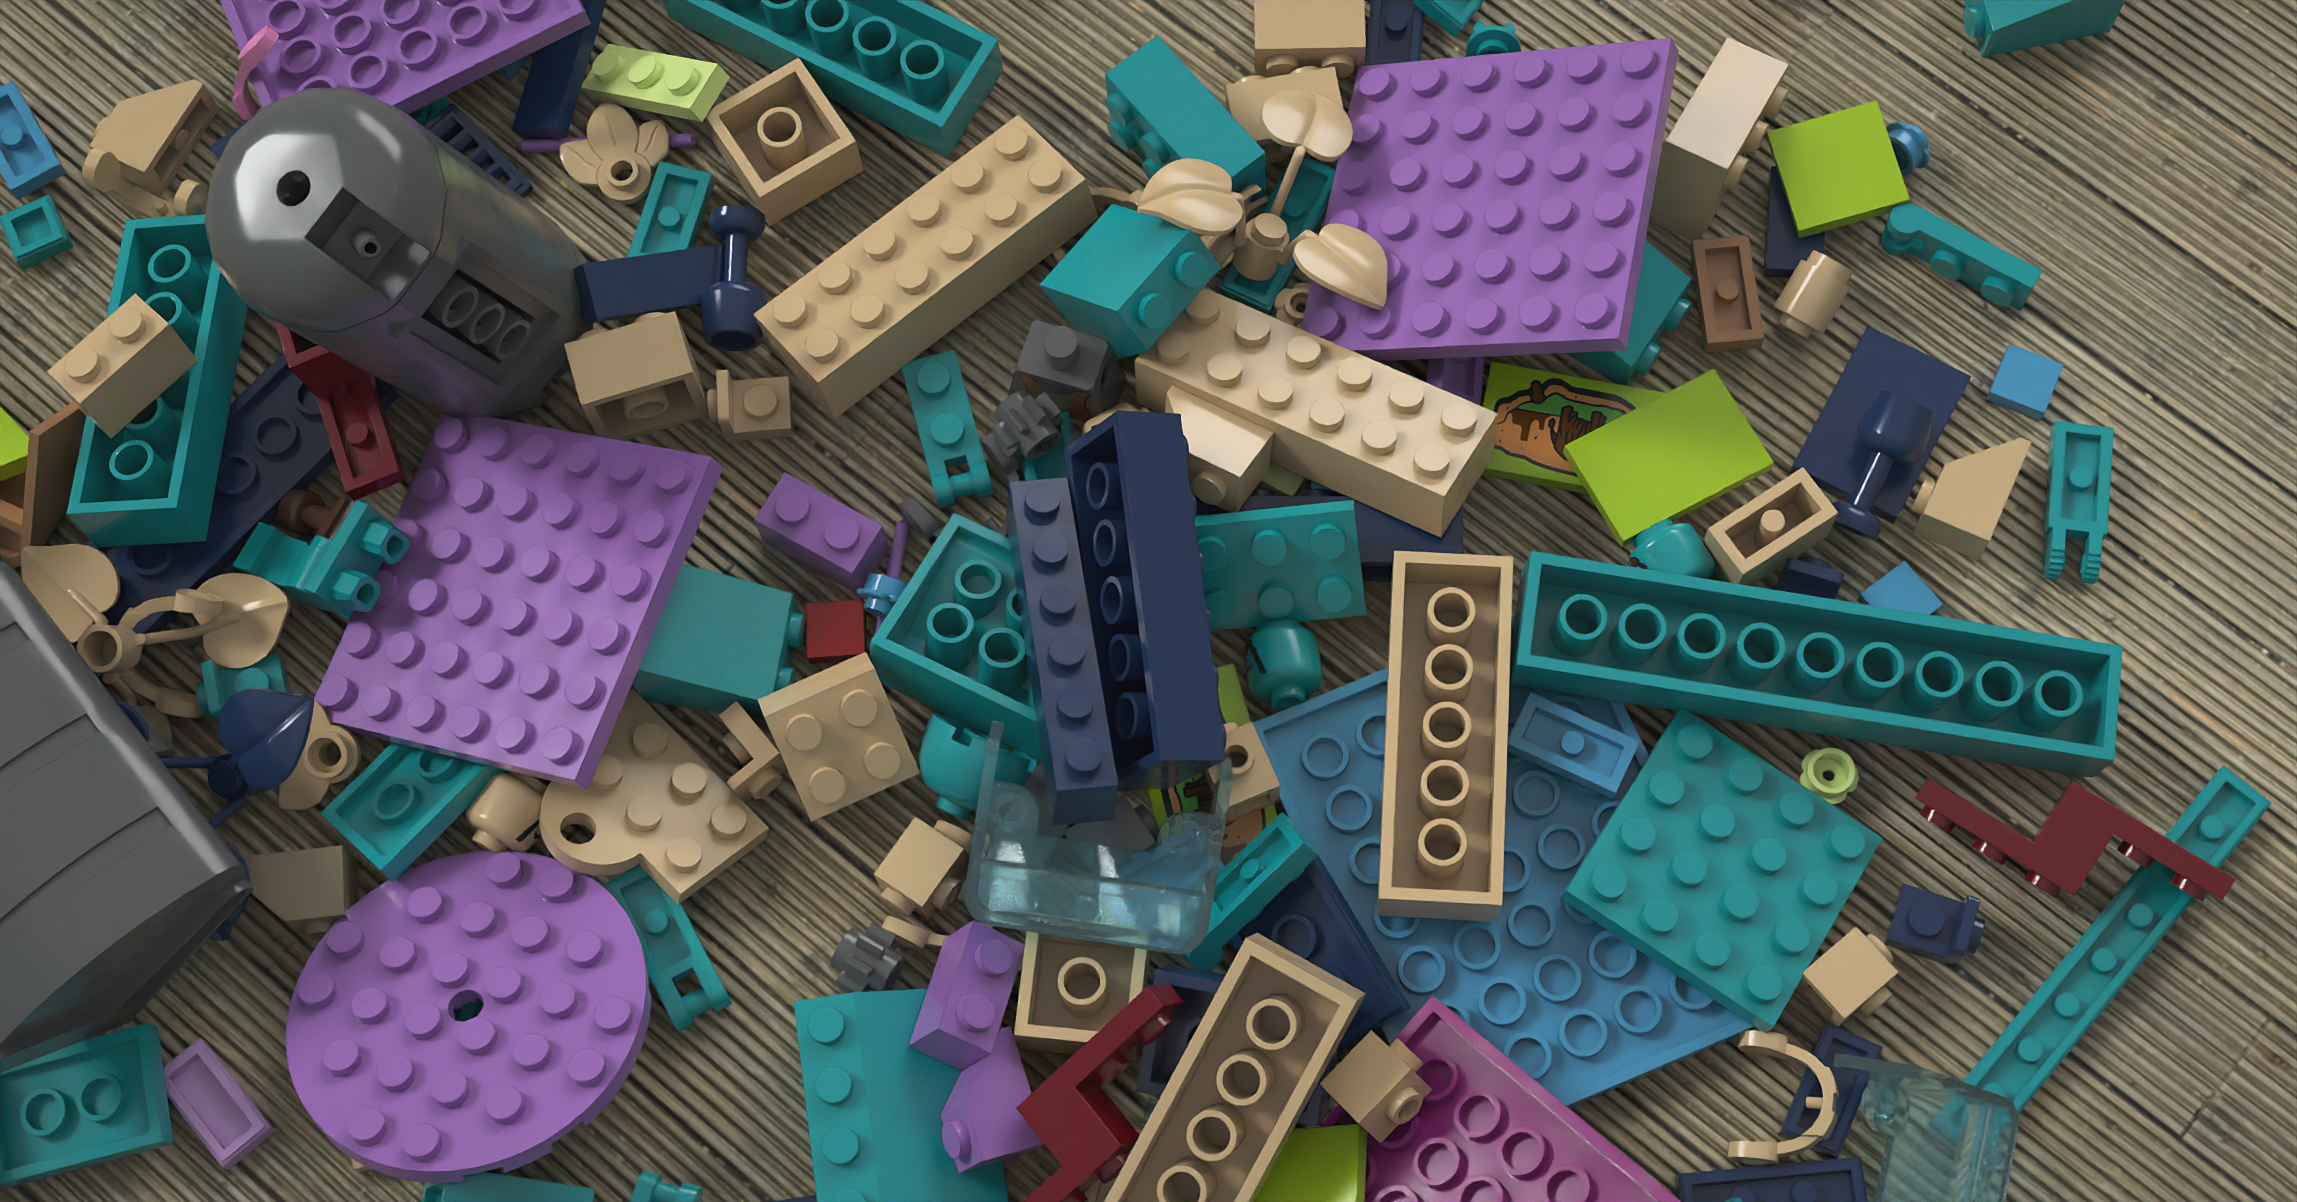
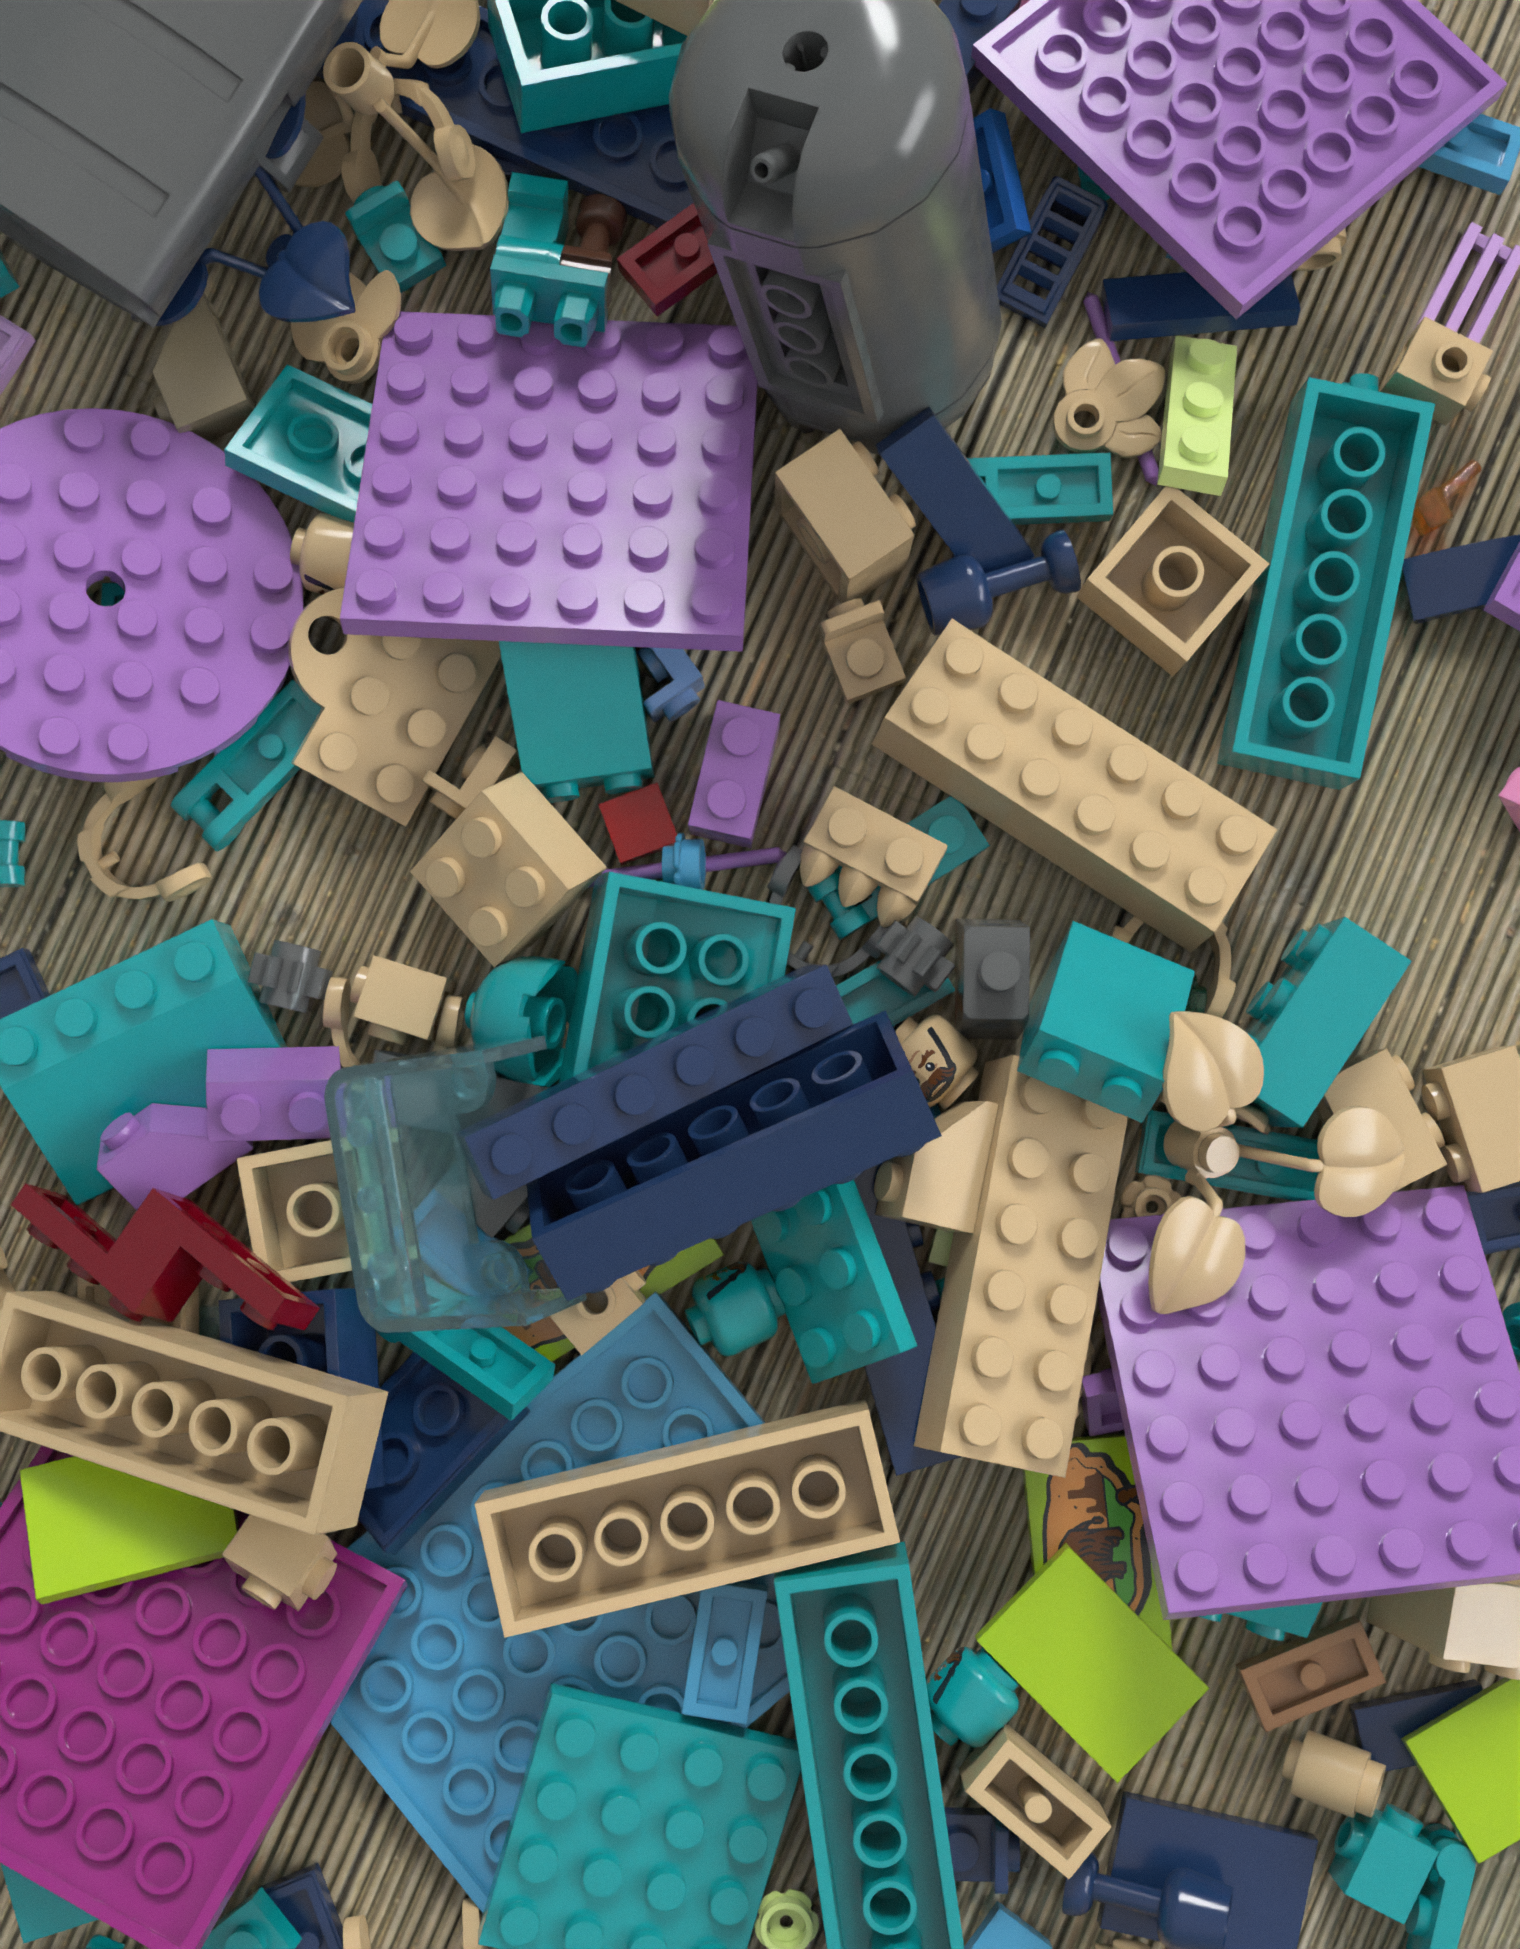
camera: 70 degrees right, 15 degrees up
(721, 556) = (685, 679): none -> medium blue bracket
(751, 1053) = (89, 848): none -> tan piece
(928, 438) = (872, 853): none -> tan plate
(1894, 279) = (1383, 1860): none -> teal brick

